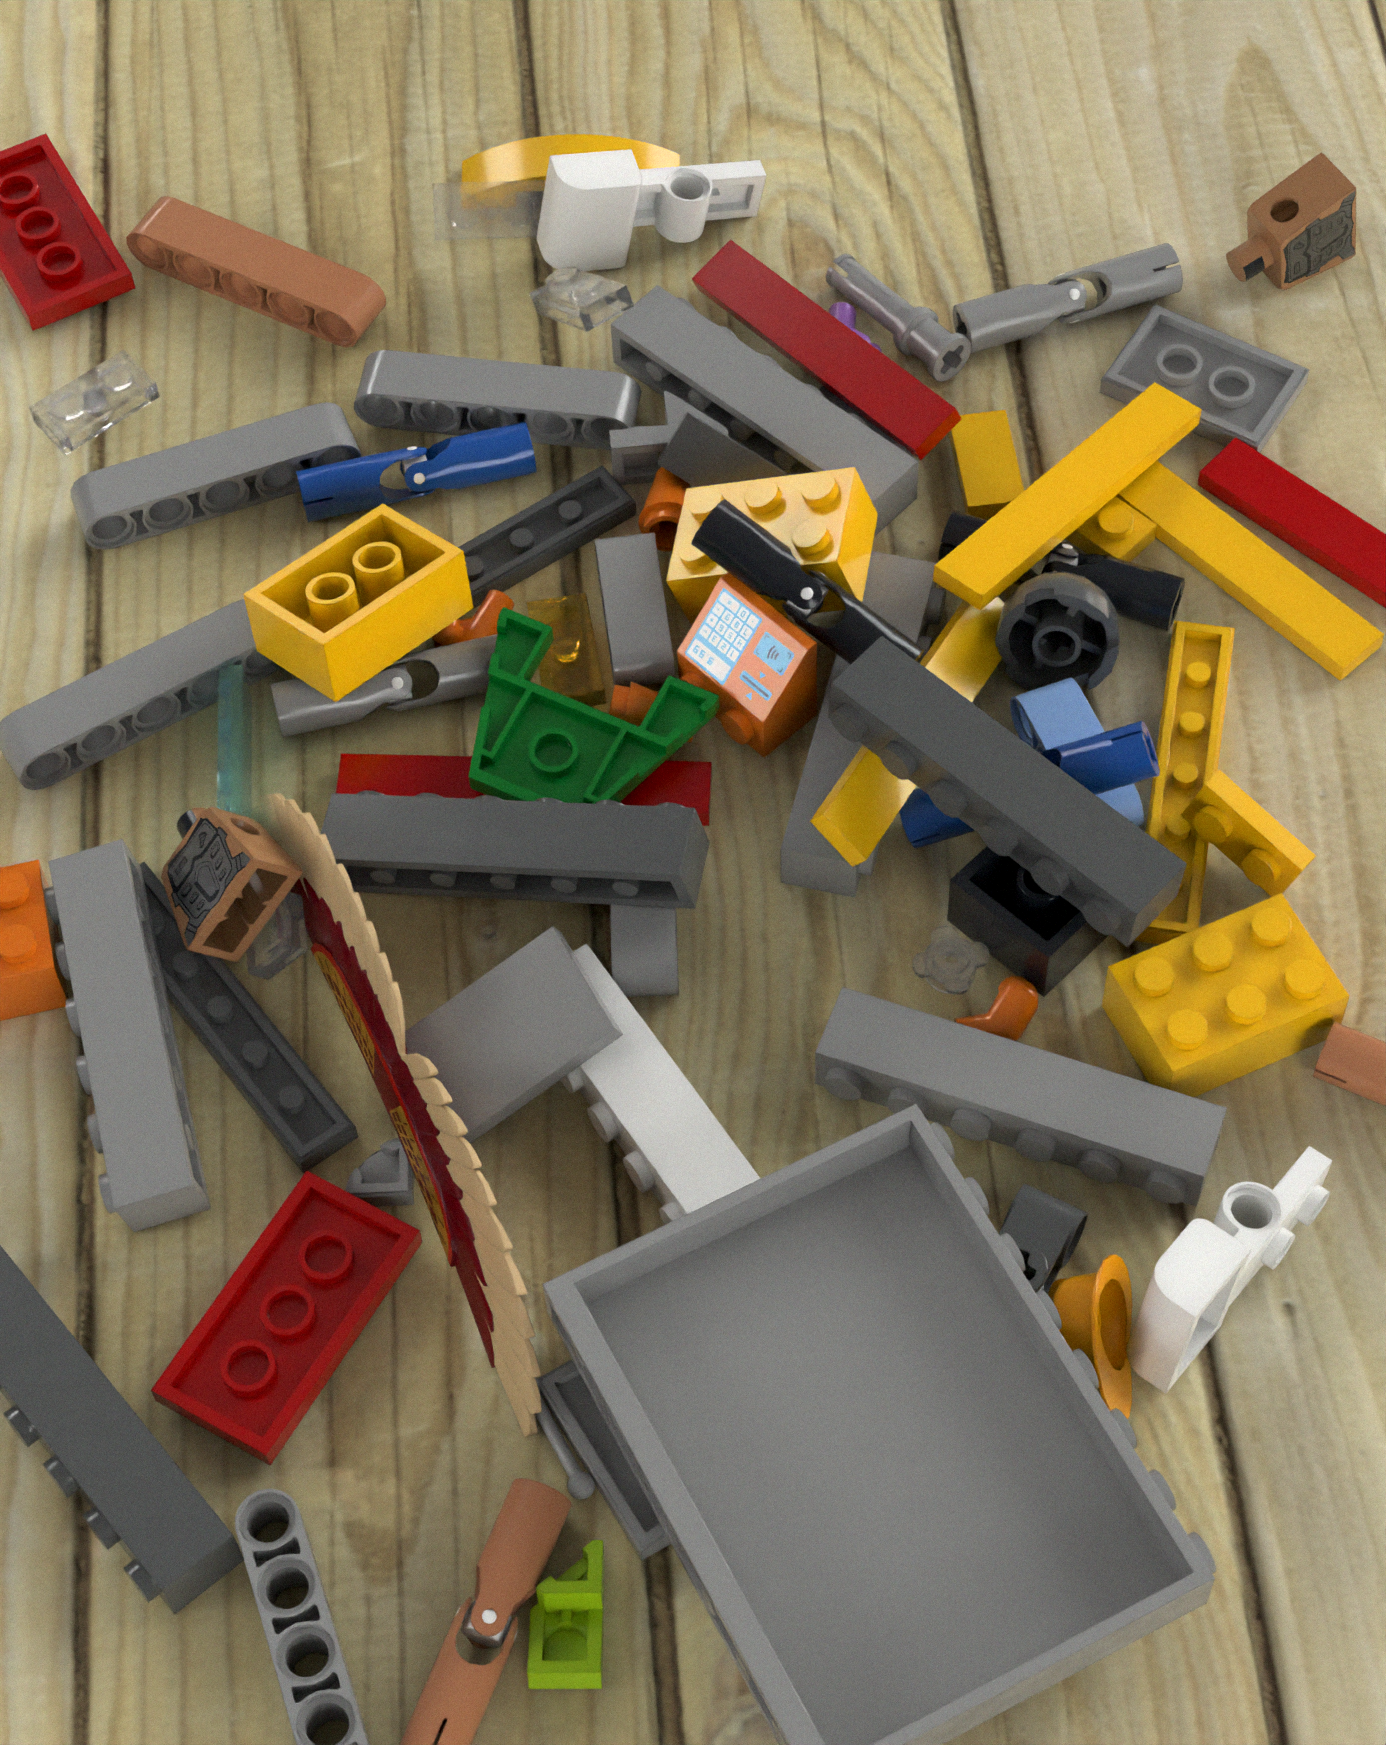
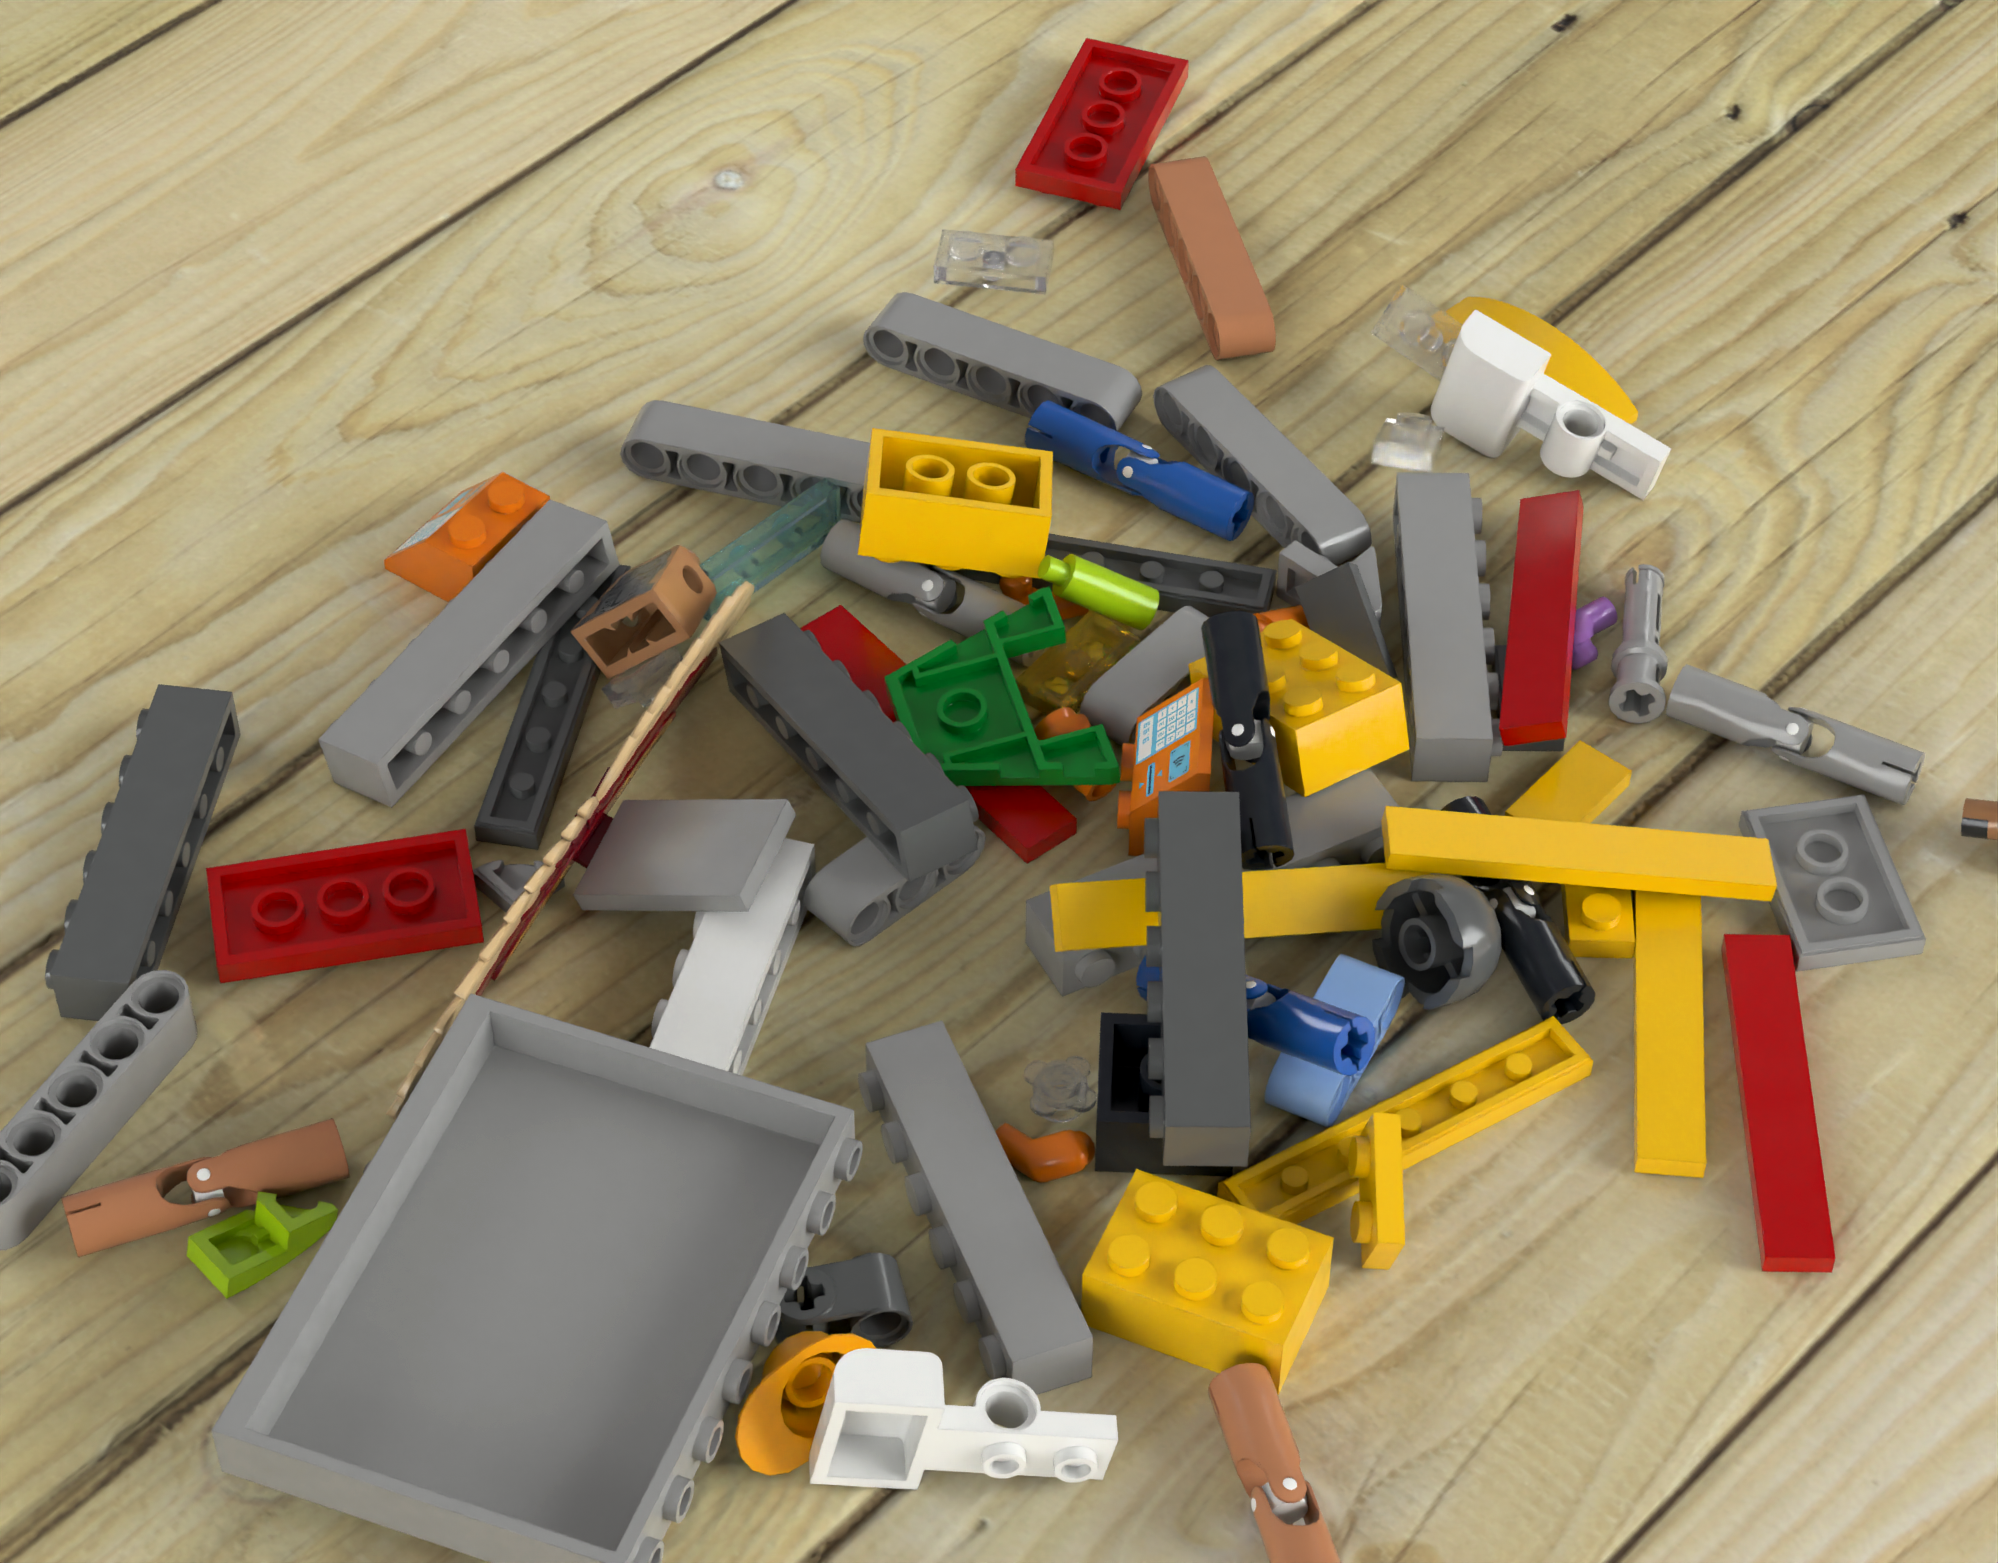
camera: 45 degrees right, 10 degrees down
(522, 580) = (1101, 590): none -> lime cylinder

